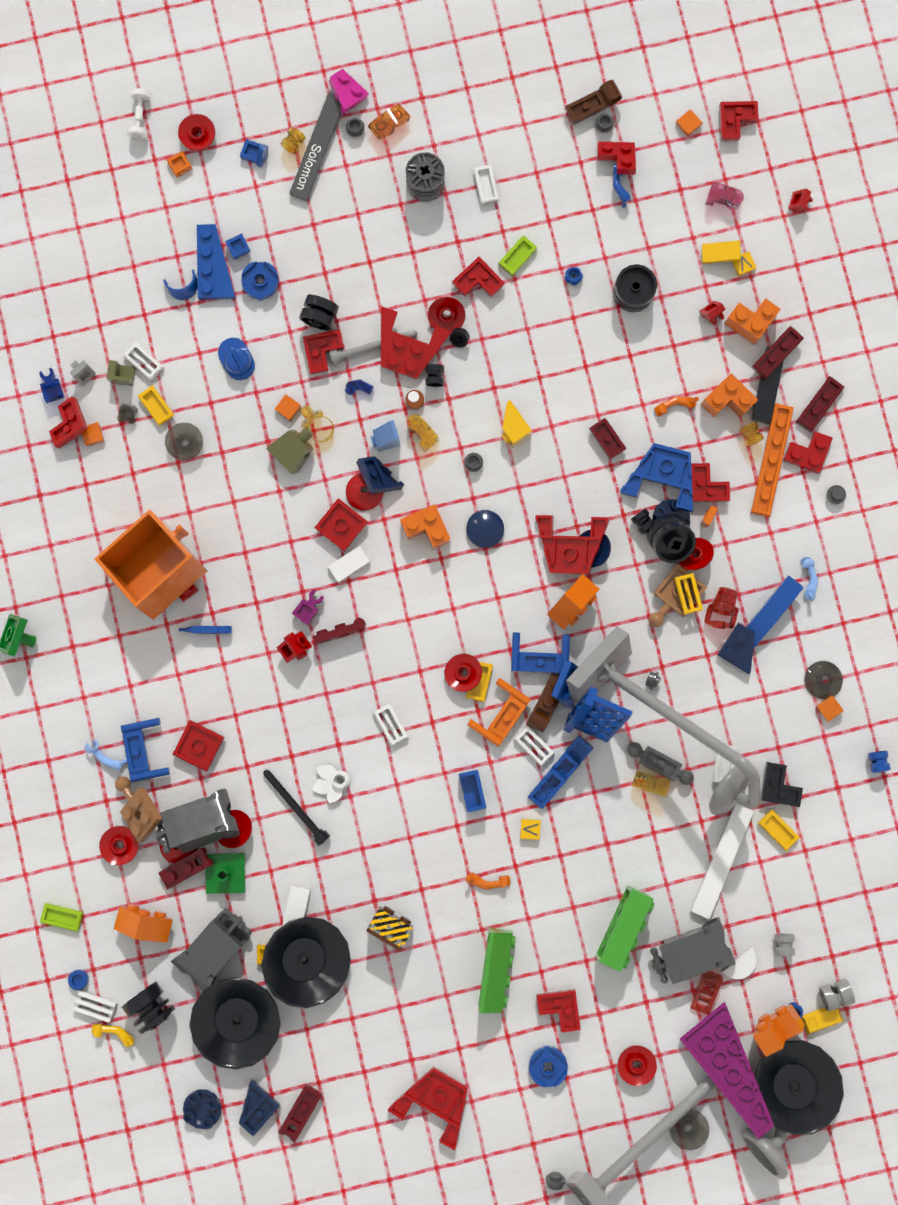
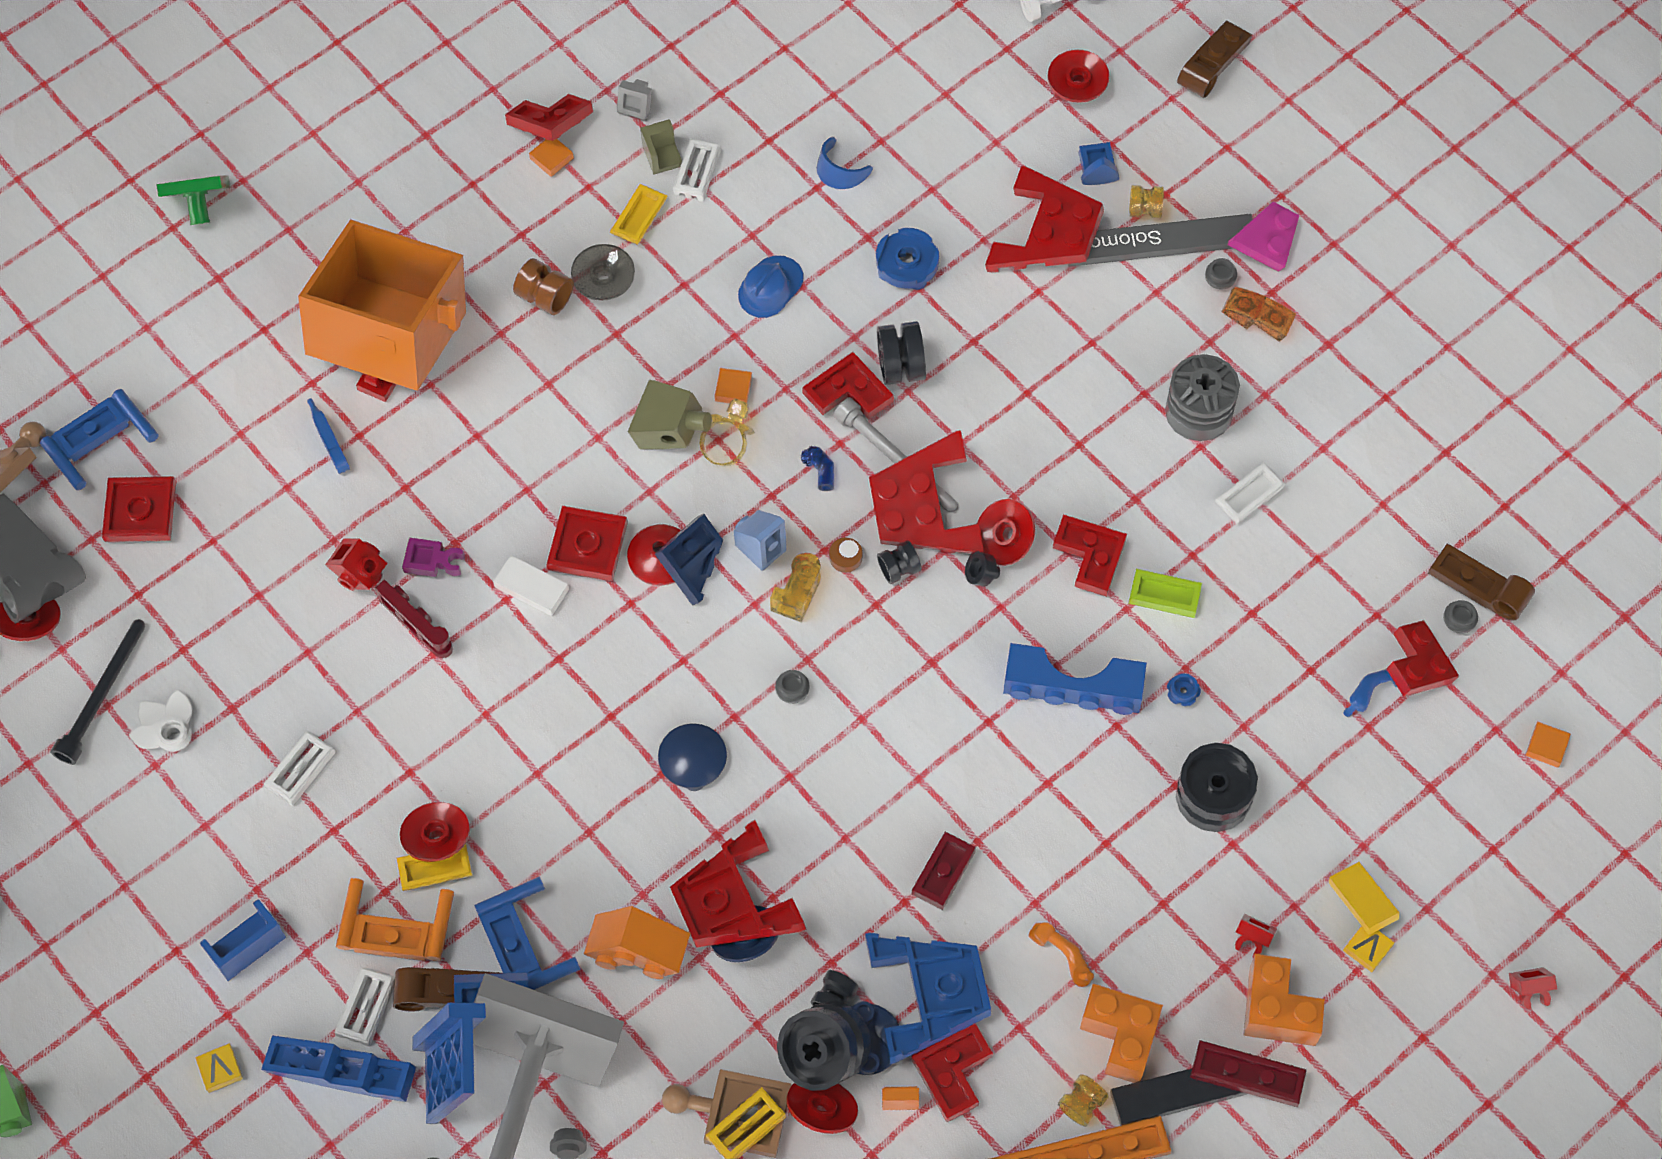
camera: 65 degrees right, 20 degrees down
(51, 387) = (591, 74): clear blue plate -> none
(114, 764) = (62, 391): light blue piece -> none
(123, 409) = (603, 177): clear smoke plate -> none
(177, 476) = (545, 288): none -> dark orange wheel
(179, 164) = (1019, 80): orange tile -> none
(212, 269) = (885, 192): blue wing -> none
(223, 56) = (1213, 58): none -> reddish brown plate
(237, 246) = (940, 206): blue plate -> none
(285, 191) = (1061, 228): none -> red wing
(427, 521) = (654, 661): orange brick -> none
(475, 880) = (94, 1022): orange piece -> none
(514, 426) = (883, 715): yellow slope -> none
(528, 342) = (1114, 688): none -> blue arch
(724, 195) = (1462, 856): clear pink leg -> none
(732, 114) = (1605, 803): red plate -> none

